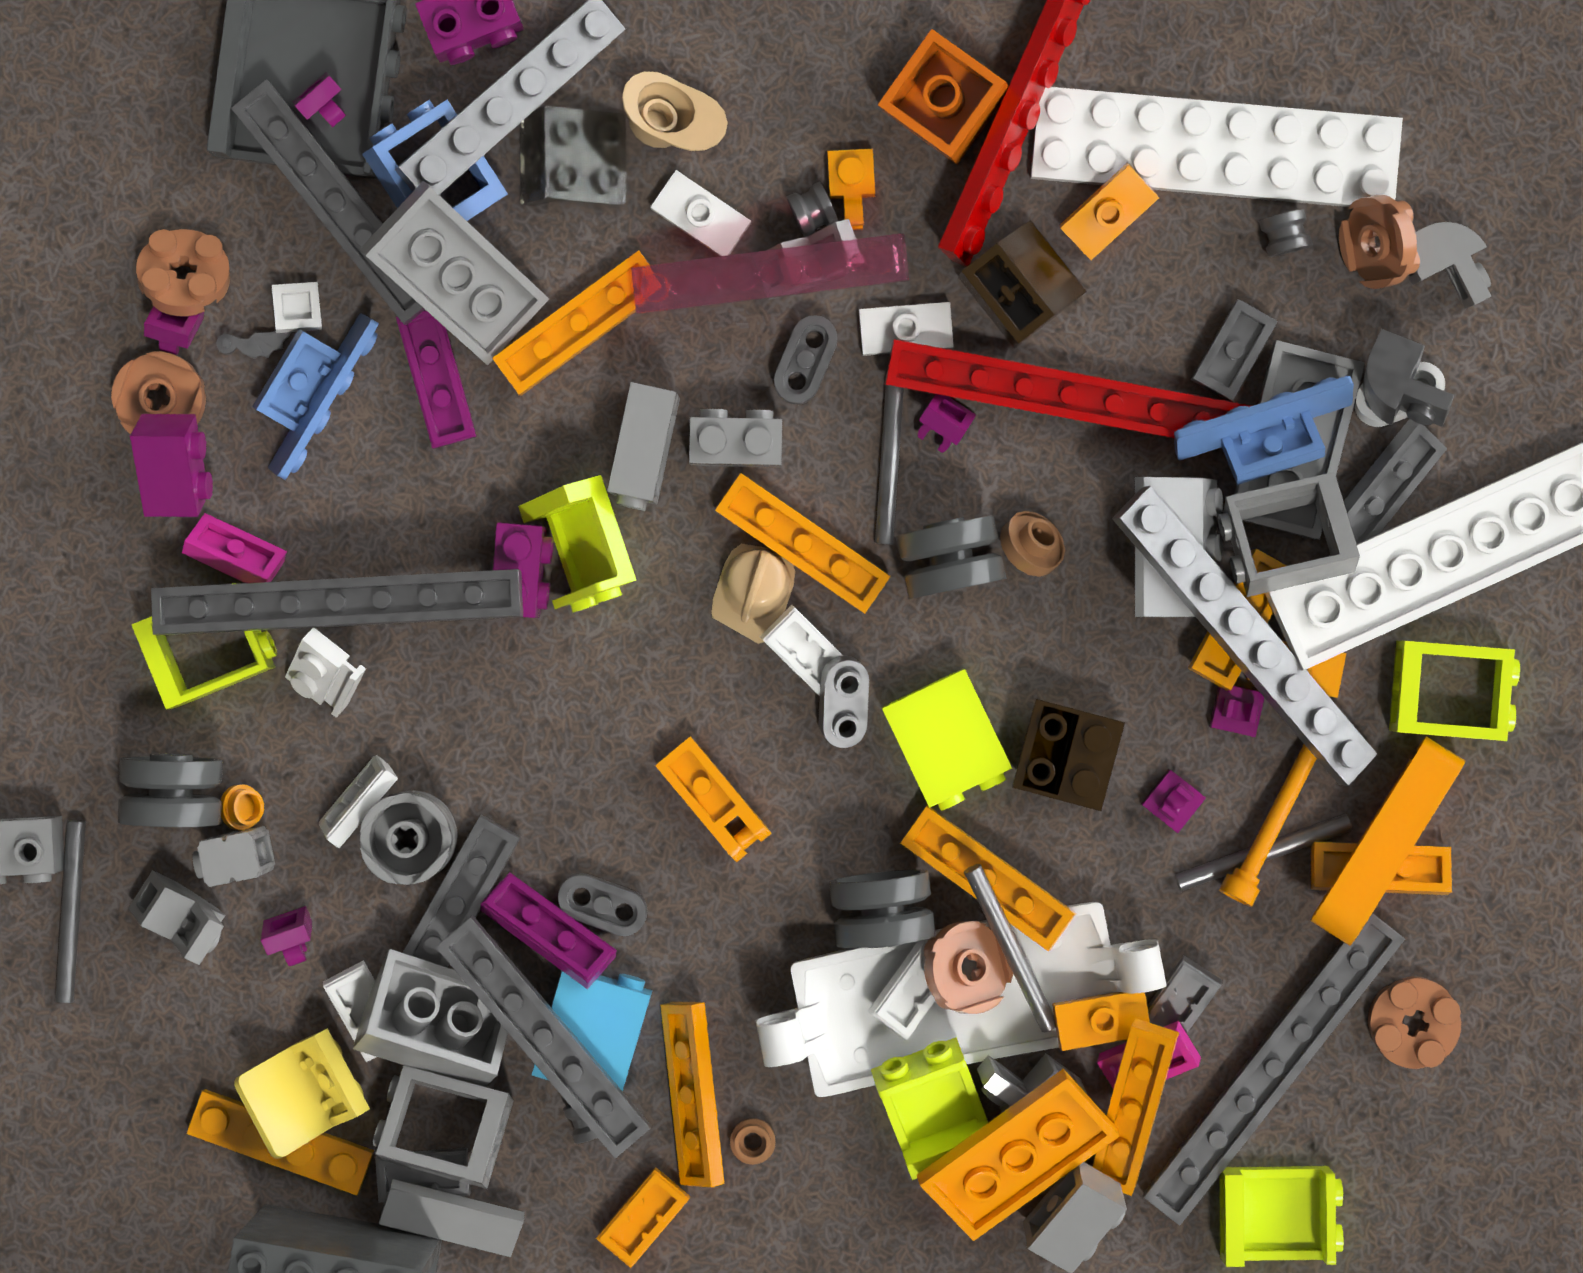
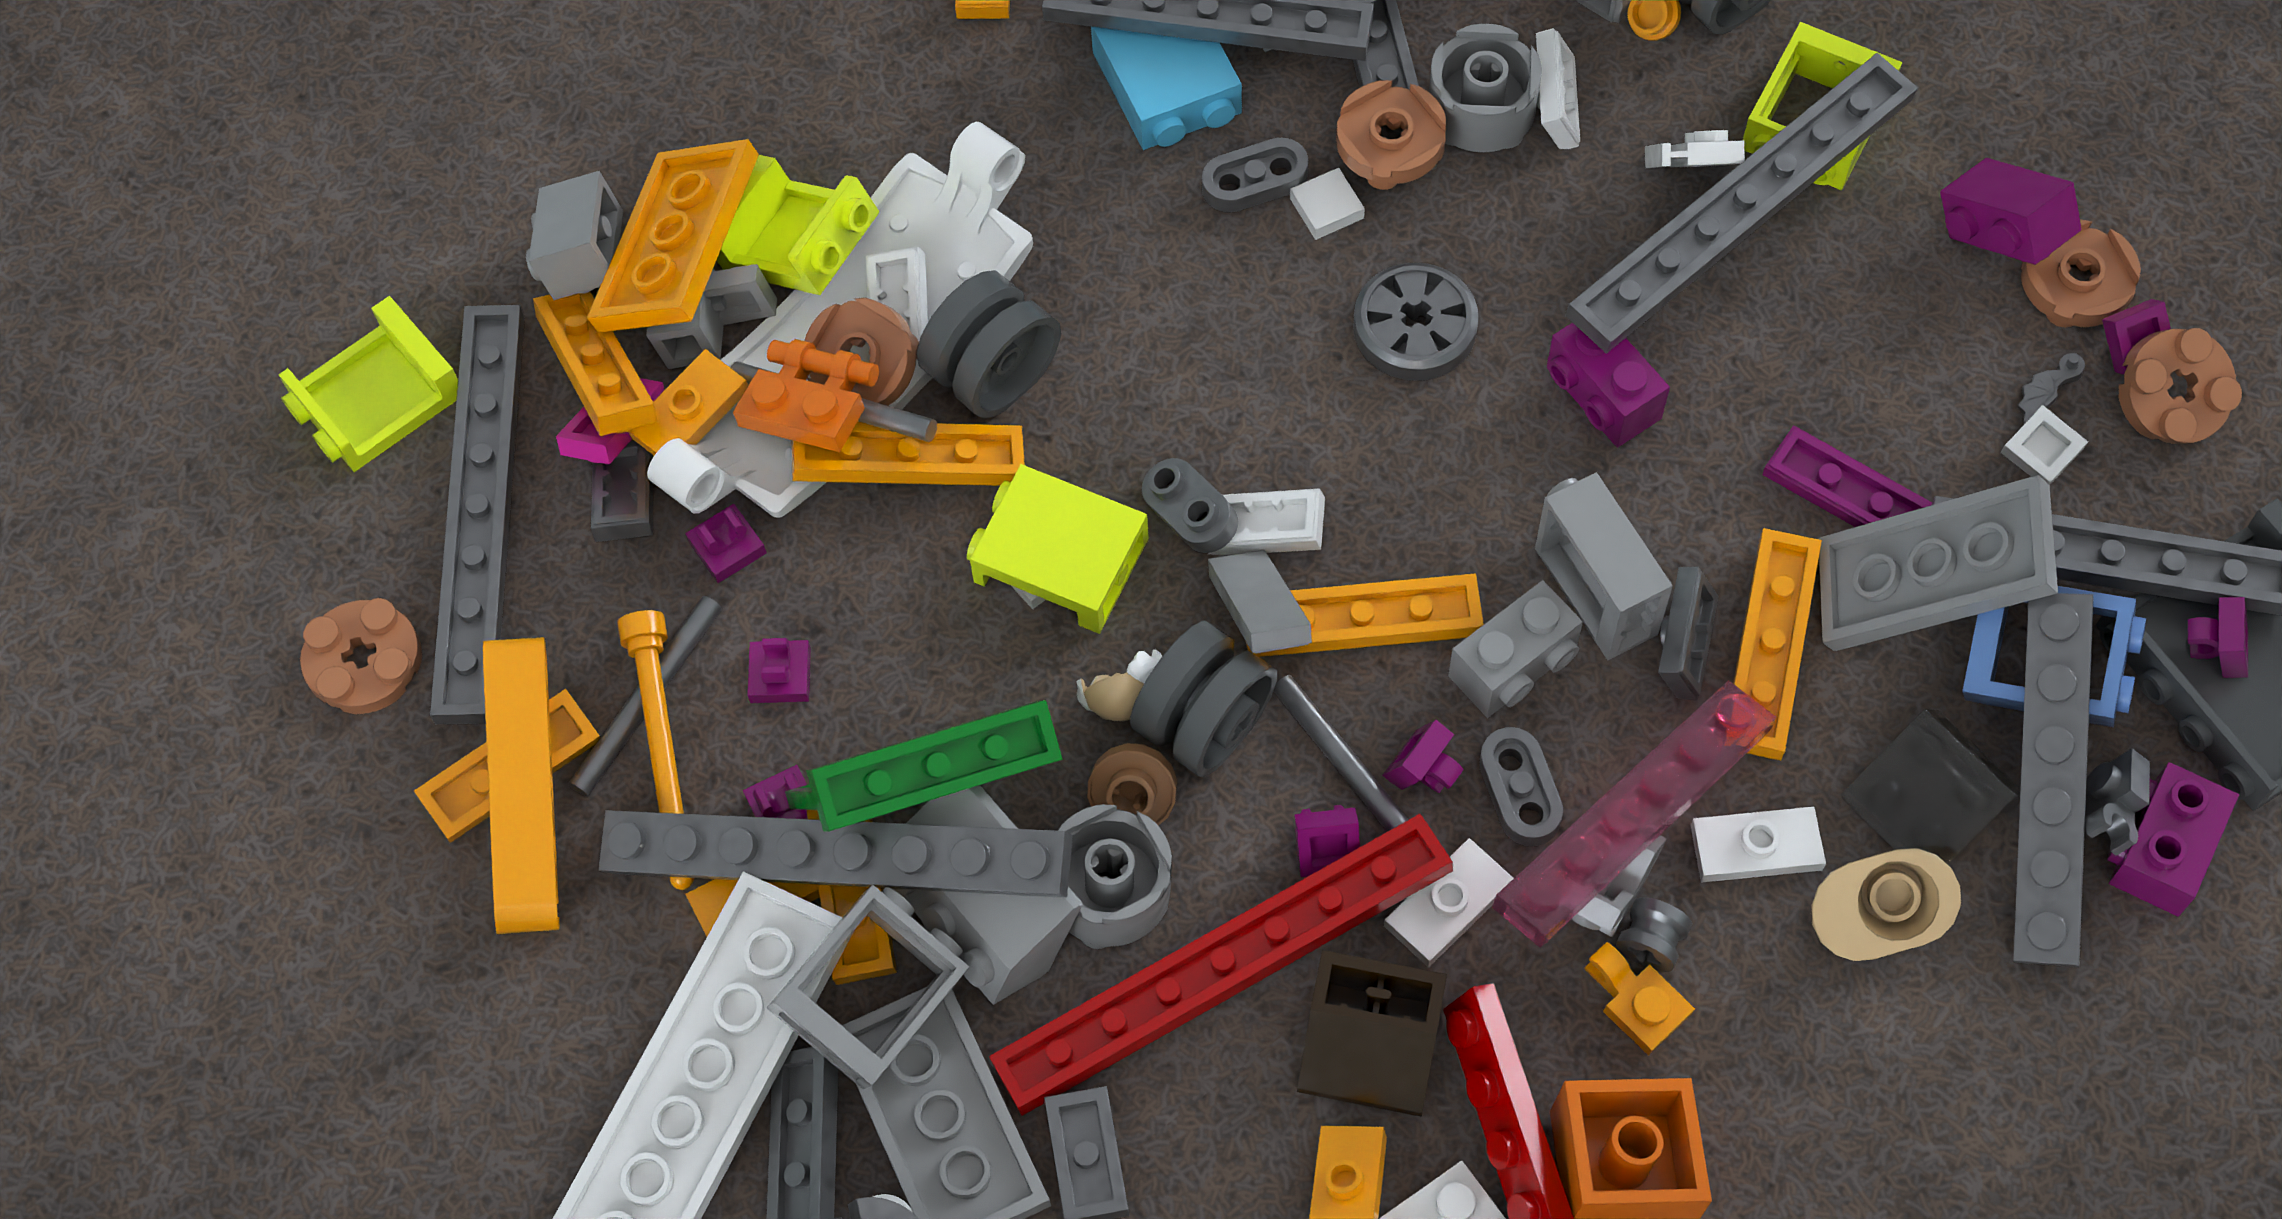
camera: 145 degrees right, 25 degrees down
(233, 551) = (1876, 199): dark pink plate -> none
(306, 385) = (1965, 383): medium blue bracket -> none
(479, 868) = (1391, 160): none -> nougat plate
(482, 64) = (2114, 796): none -> flat silver plate
(548, 930) = (1273, 109): magenta tile -> none
(573, 847) = (1327, 203): none -> white tile
(577, 736) = (1417, 350): none -> flat silver wheel
(585, 541) = (1567, 444): neon yellow panel -> none
(624, 367) = (1687, 633): none -> flat silver plate
(692, 1094) = (1018, 80): light orange plate -> none
(712, 797) = (1236, 333): light orange plate -> none
(749, 1155) = (933, 83): medium nougat plate -> none
(753, 590) = (1369, 541): tan piece -> none
(848, 423) = (1423, 760): none -> magenta tile
(867, 590) = (1259, 601): none -> light grey tile
(985, 610) = (1115, 695): none -> tan hair
(1041, 951) = (802, 409): none -> orange plate
(1068, 754) = (924, 620): dark brown slope -> none
(1076, 476) = (1140, 867): none -> light grey brick
(1139, 917) = (726, 543): none -> magenta tile
(1149, 622) = (929, 766): none -> green fence
(1269, 434) = (972, 1078): medium blue bracket -> none
(1407, 684) = (591, 1034): neon yellow window -> none

